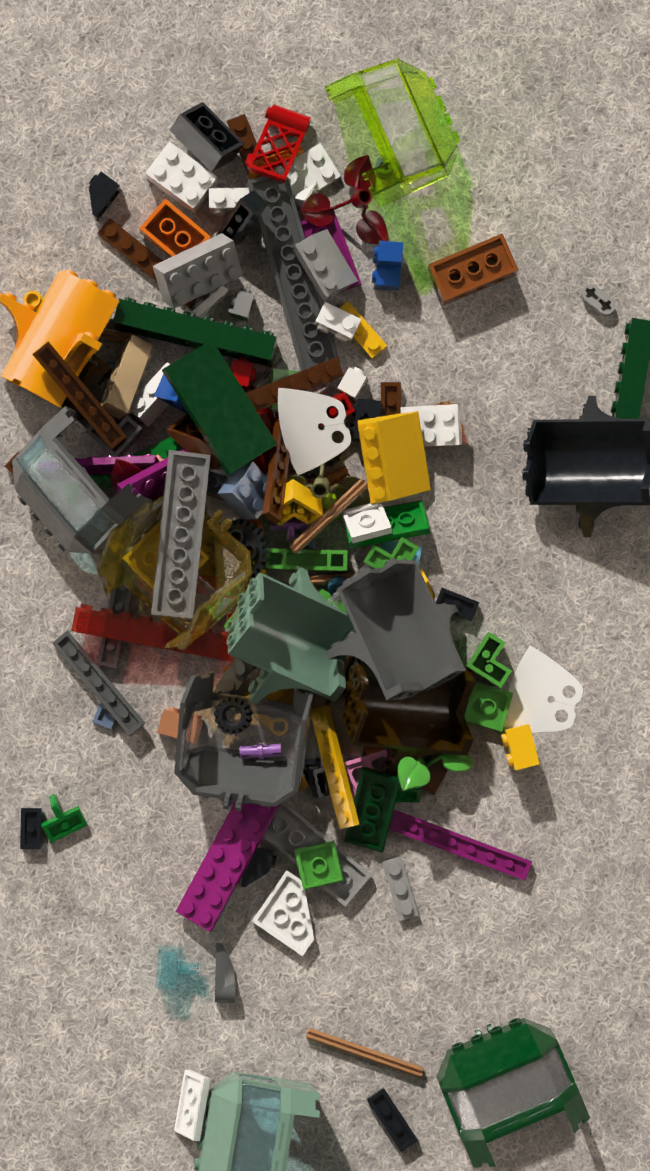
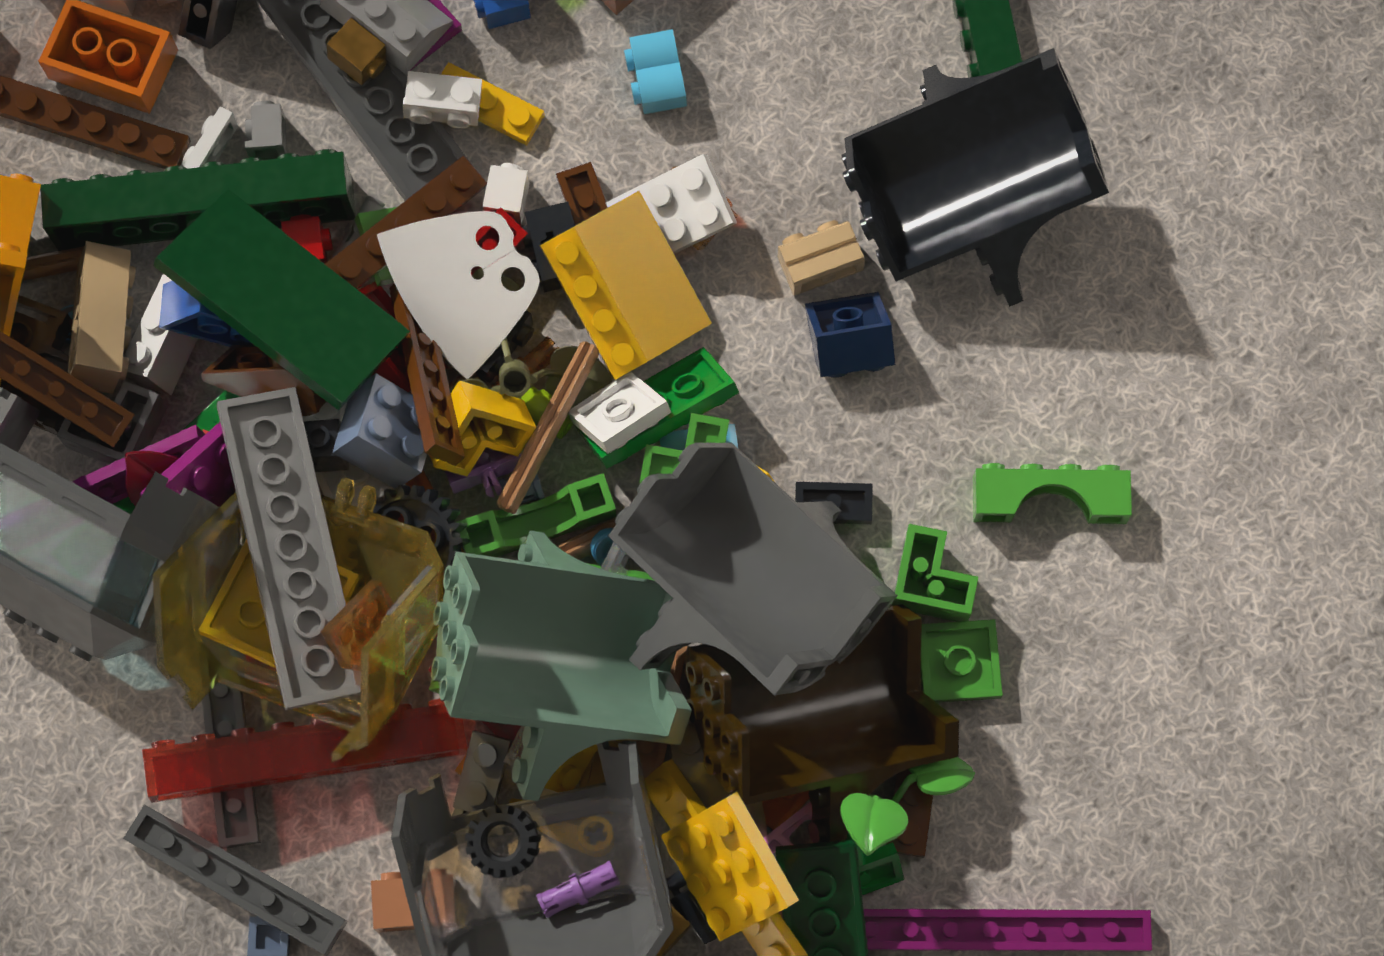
camera: 20 degrees left, 10 degrees down
(197, 270) = (165, 94): light grey brick -> none
(201, 587) = (357, 624): none -> clear orange bracket
(302, 283) = (357, 52): none -> pearl gold brick
(335, 769) = (729, 867): none -> yellow plate
(452, 345) = (657, 72): none -> medium azure brick
(498, 475) = (820, 256): none -> tan brick
(498, 521) = (850, 334): none -> dark blue slope
(520, 747) = (1046, 708): yellow brick -> none
(531, 686) = (1023, 592): white piece -> none
(590, 649) = (1099, 493): none -> bright green arch

